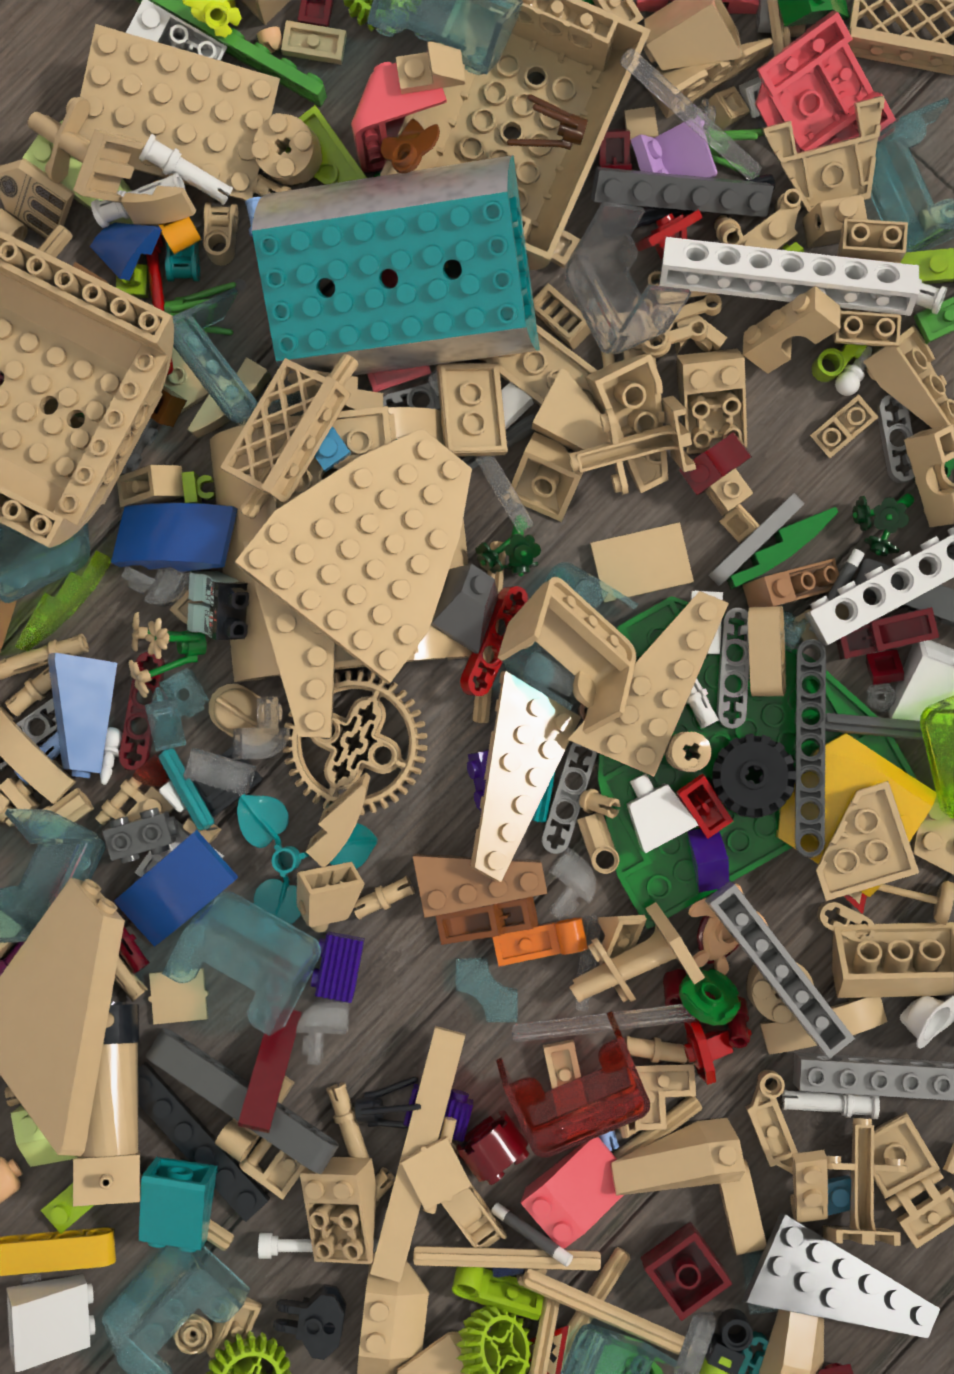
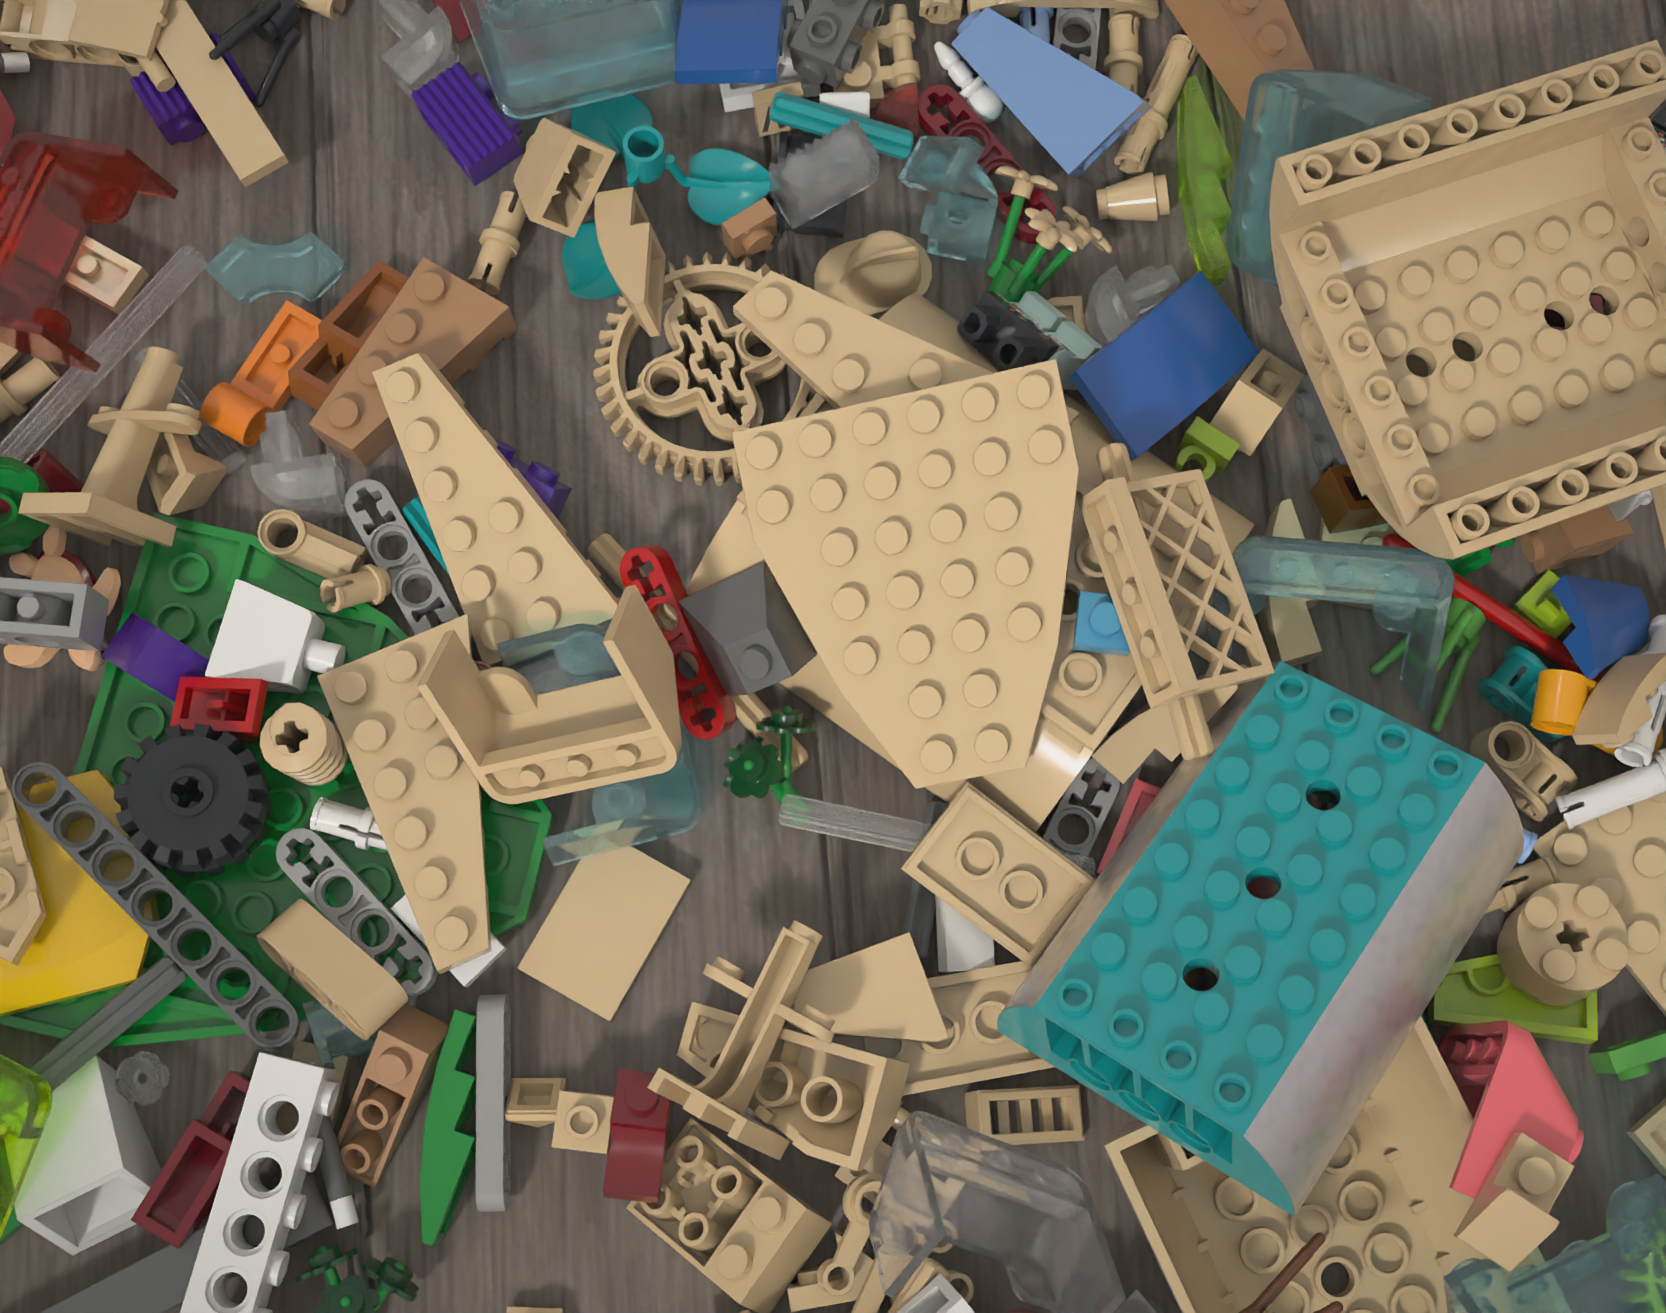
camera: 130 degrees right, 10 degrees down
(99, 625) = (1135, 199): none -> tan cone
(265, 739) = (818, 252): clear brick -> none
(277, 779) = (750, 230): none -> medium nougat plate
(410, 146) = (1427, 1090): dark orange plate -> none
(493, 1148) = (87, 99): dark red brick -> none
(546, 477) = (831, 893): tan slope -> none
(565, 249) = (1111, 1203): tan plate -> none
(884, 667) = (167, 1114): dark red plate -> none

